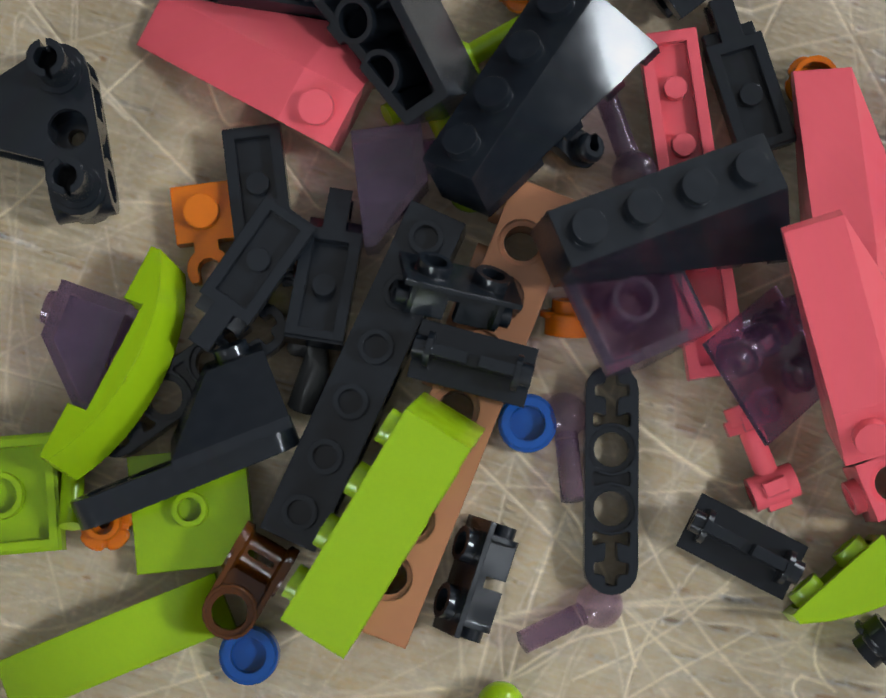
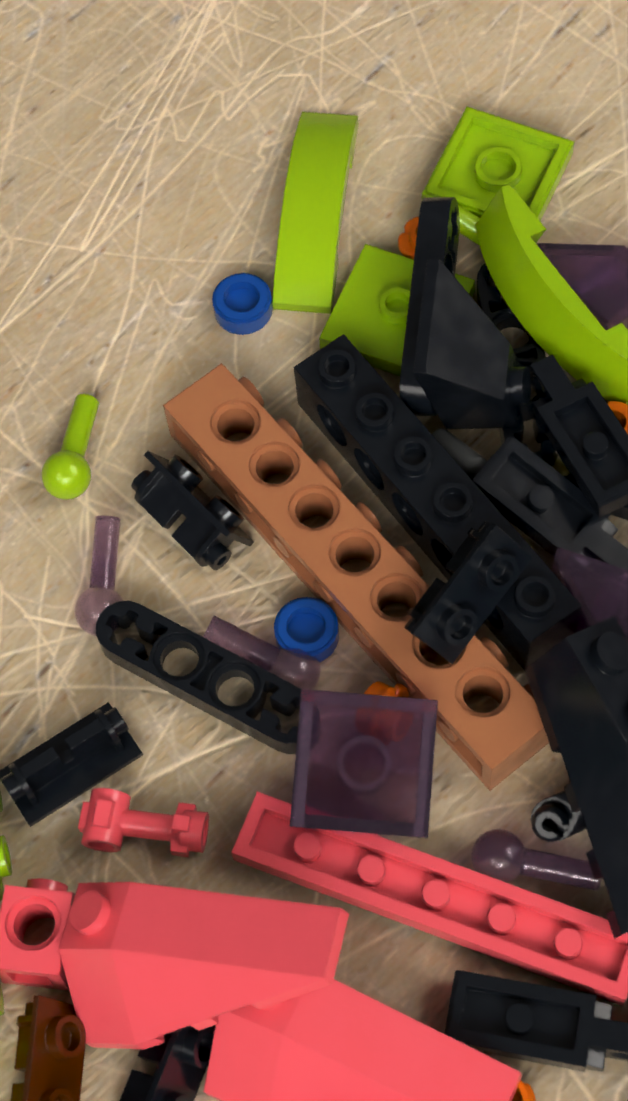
camera: 120 degrees right, 20 degrees down
(249, 579) = (308, 313): reddish brown piece -> none
(380, 523) = (290, 425): lime wedge -> none
(472, 363) = (388, 578): black hinge -> none
(682, 218) = (418, 847): black wedge -> none
(766, 363) = (225, 850): clear purple hinge -> none

